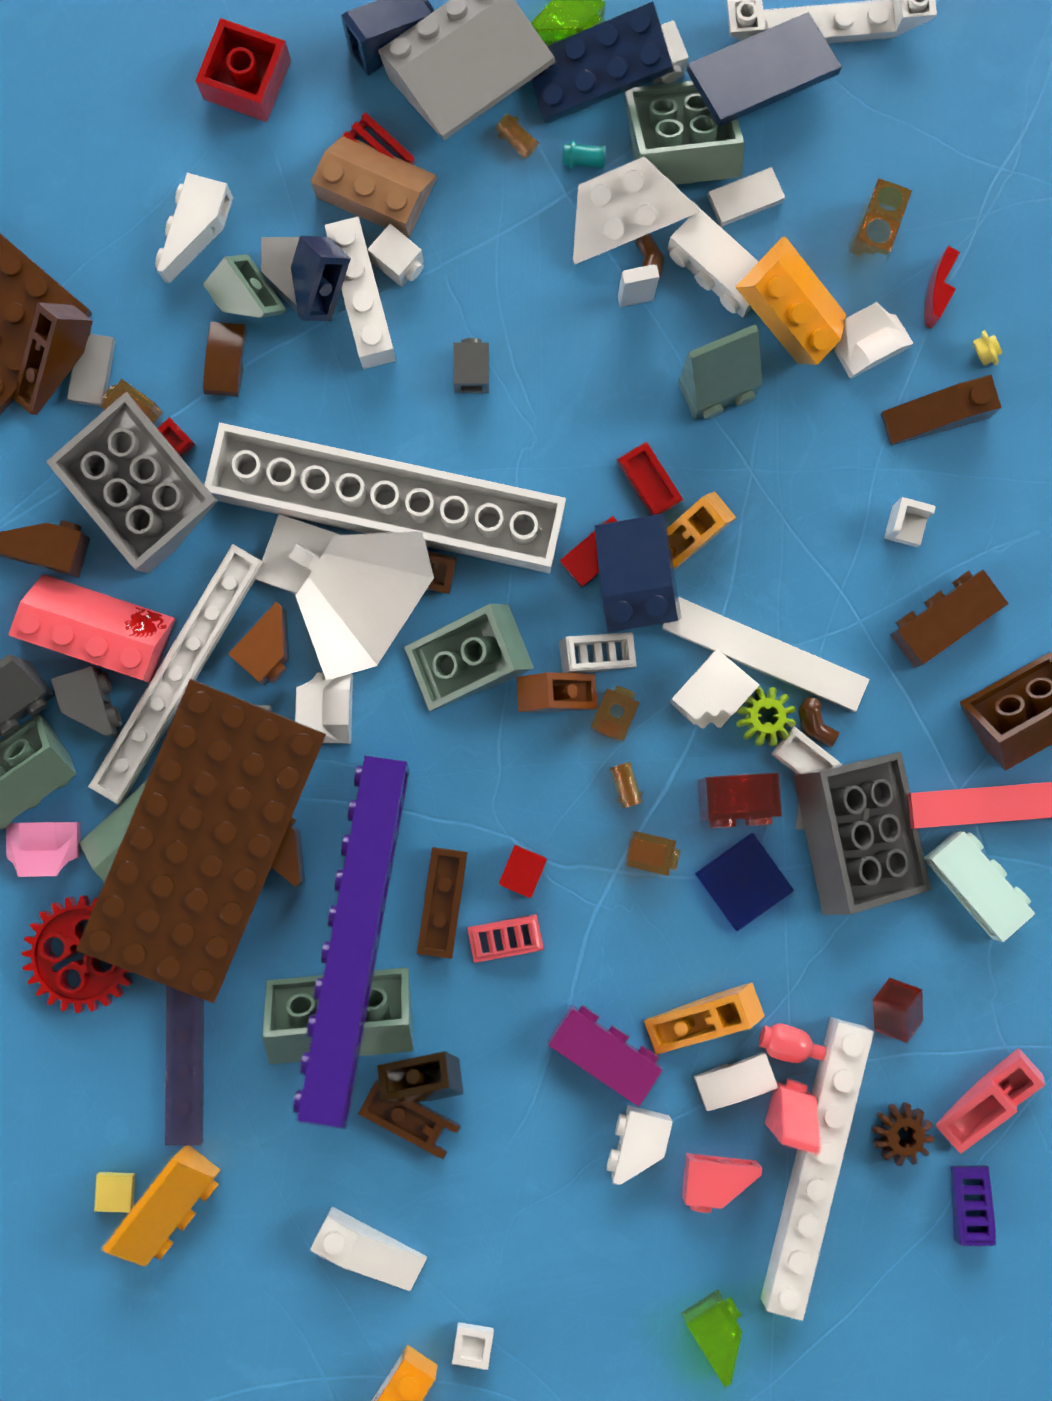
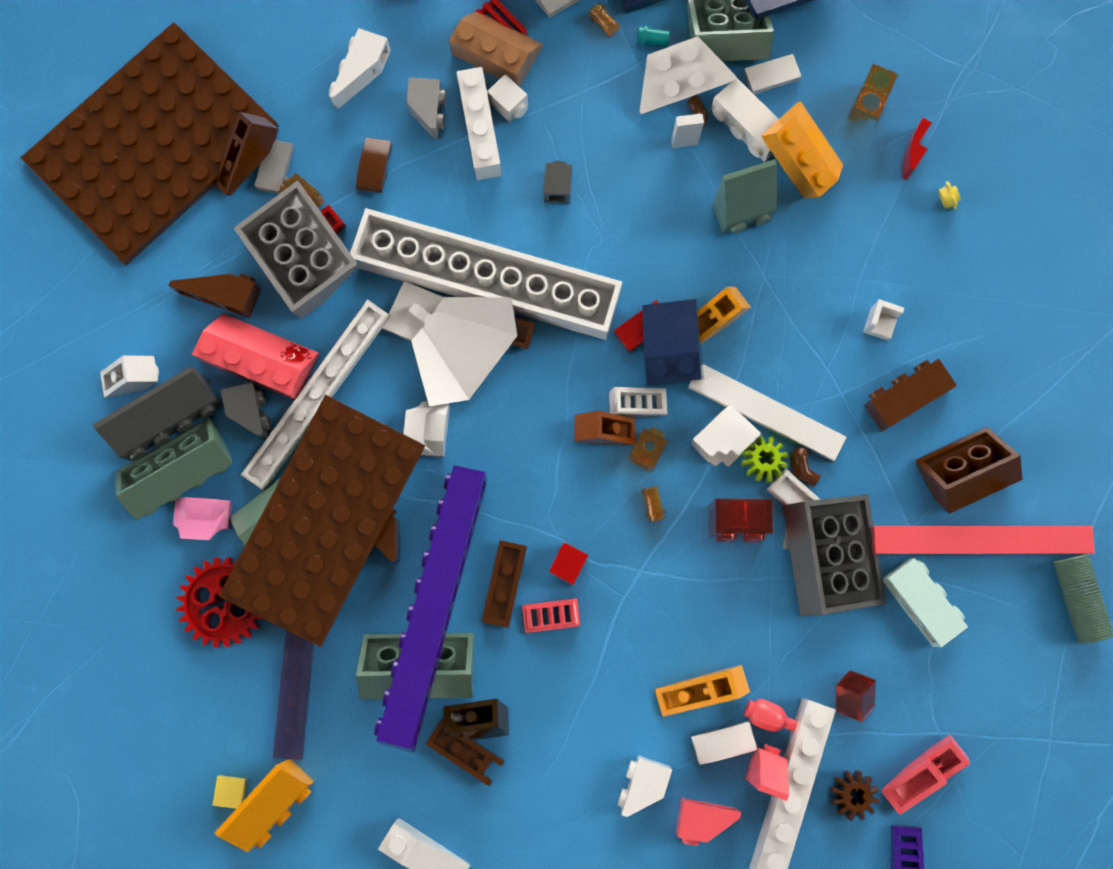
camera: 10 degrees right, 5 degrees down
(242, 289) = (390, 113): sand green slope -> none
(265, 646) = (385, 378): dark orange slope -> none
(318, 277) = (448, 108): dark blue slope -> none
(469, 656) = (539, 396): sand green slope -> none
(606, 1054) = (623, 712): magenta brick -> none
(649, 480) = (686, 275): red tile -> none
(652, 853) = (669, 558): clear orange brick -> none
(744, 881) = (740, 586): clear blue tile -> none
(870, 339) = (860, 183): white slope -> none
(942, 410) = (913, 239): reddish brown slope -> none

